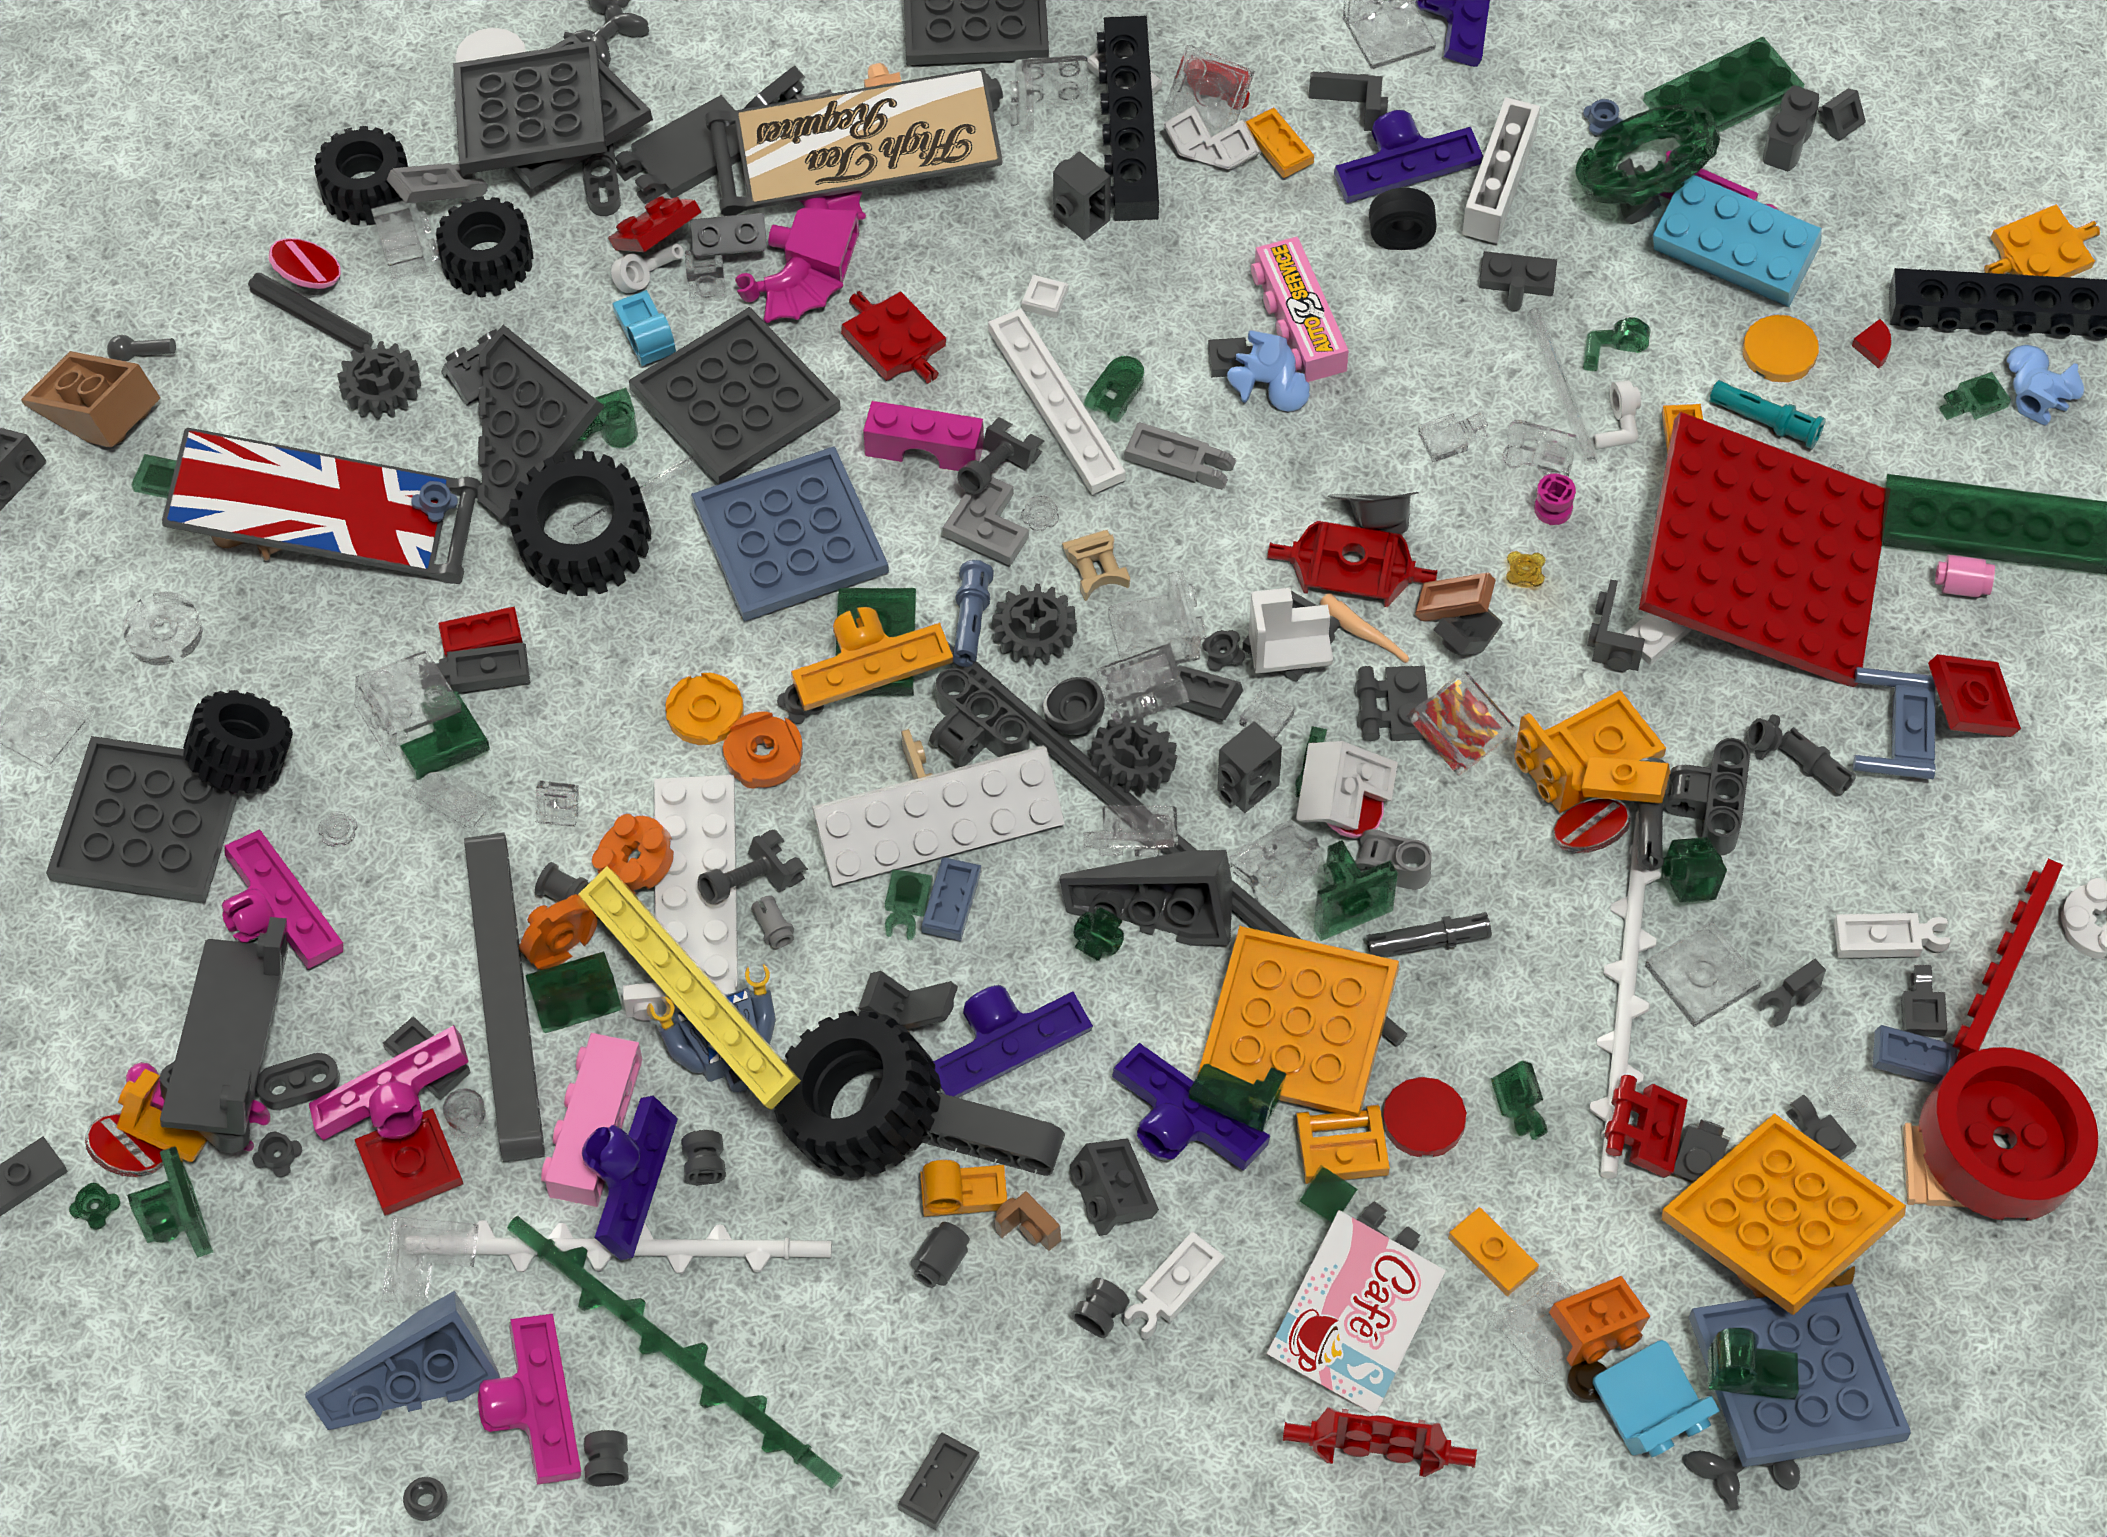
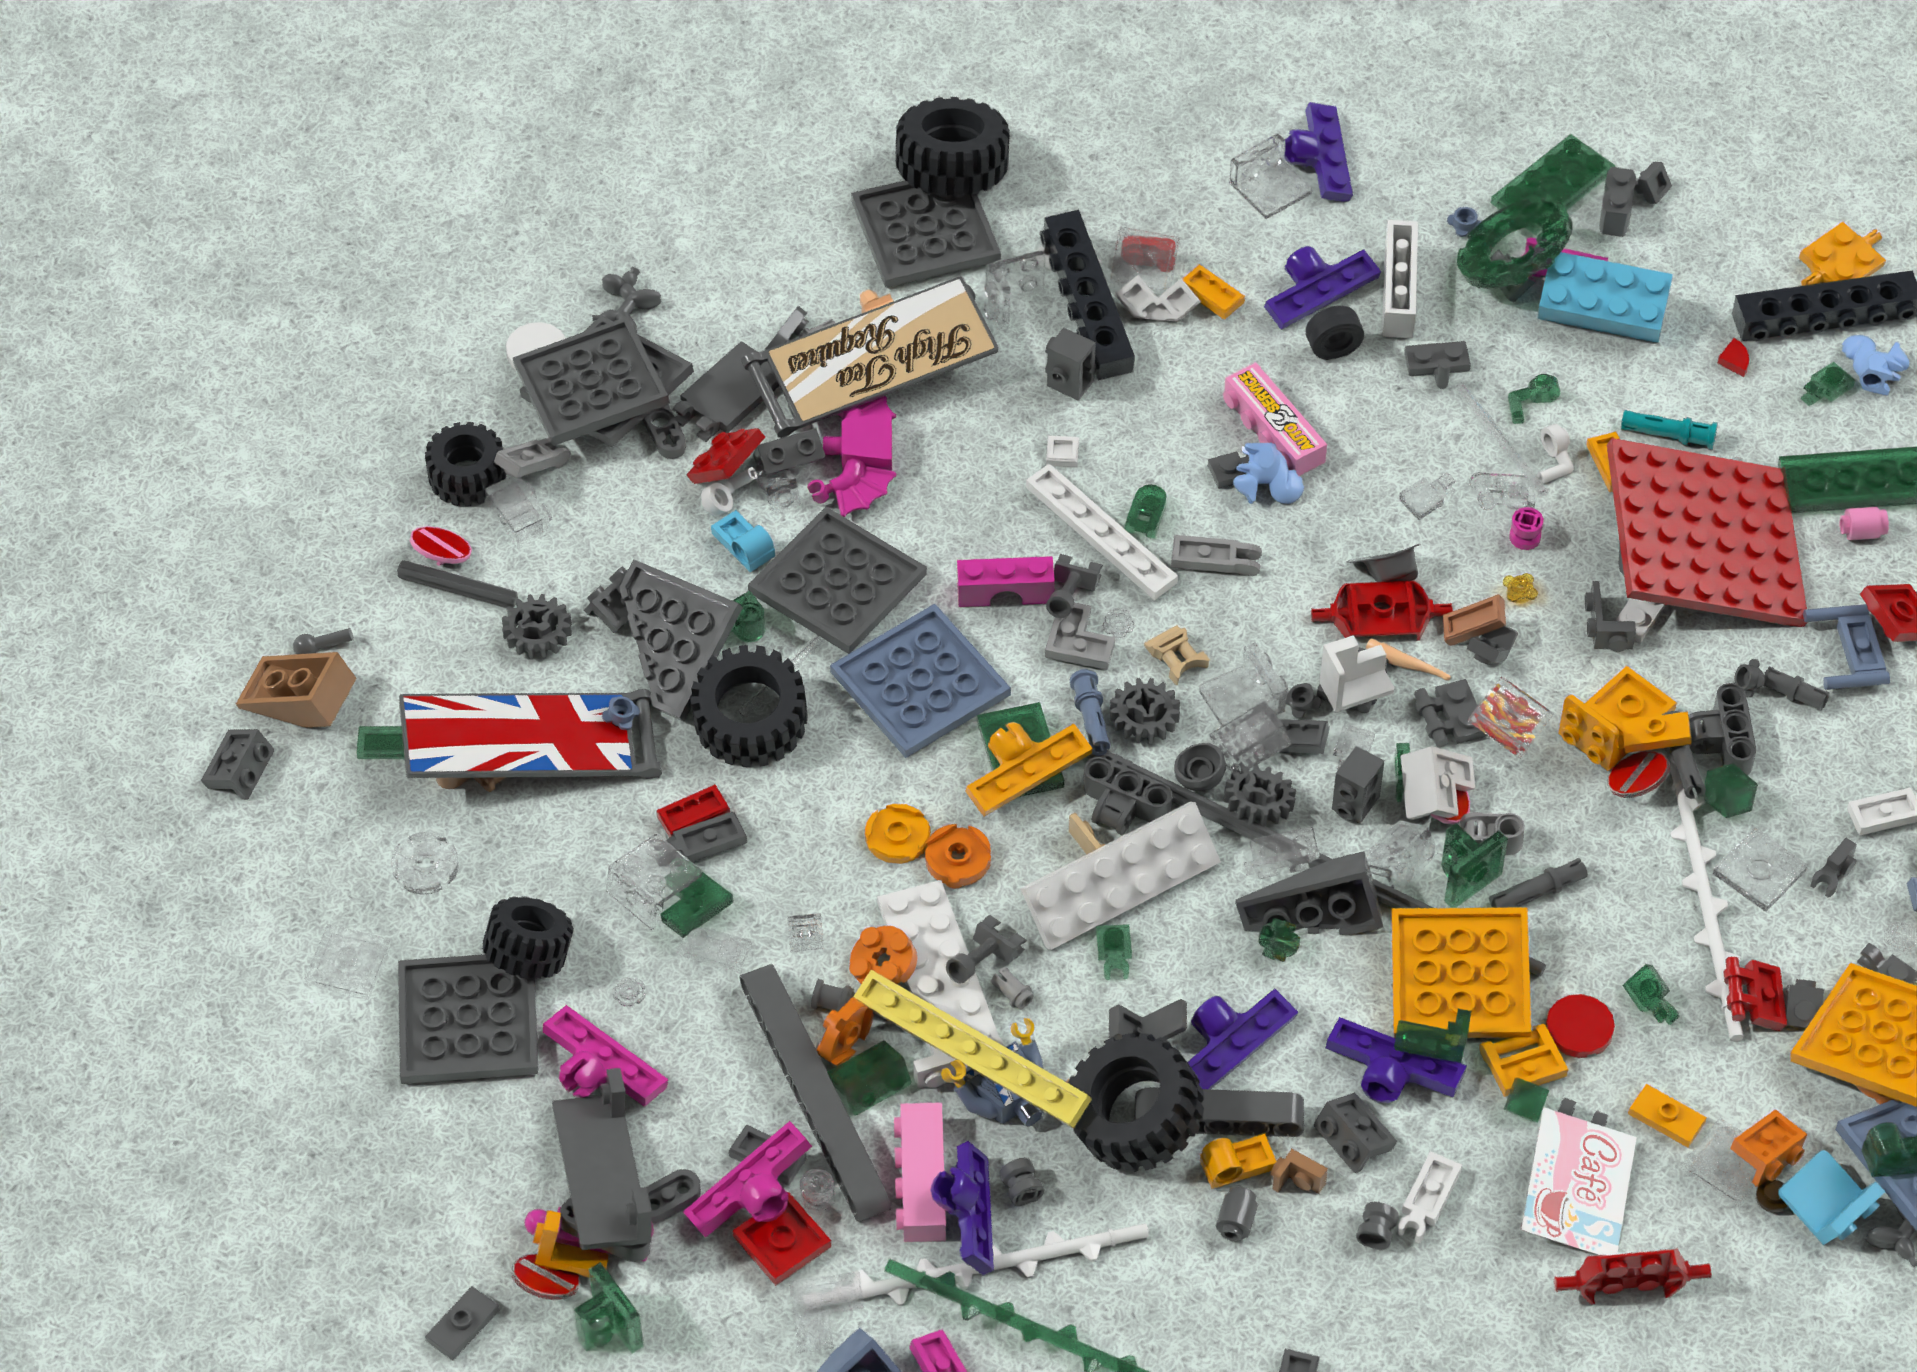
camera: 15 degrees left, 5 degrees down
(89, 1195) = (533, 1321): clear green plate -> none
(272, 1143) = (670, 1247): dark grey plate -> none
(488, 268) = (588, 520): black tyre -> none
(789, 701) = (965, 813): dark grey plate -> none
(893, 336) = (950, 507): red plate -> none
(951, 899) = (1150, 939): sand blue plate -> none
(1351, 88) = (1259, 236): dark grey bracket -> none
(1780, 348) = (1663, 376): light orange tile -> none

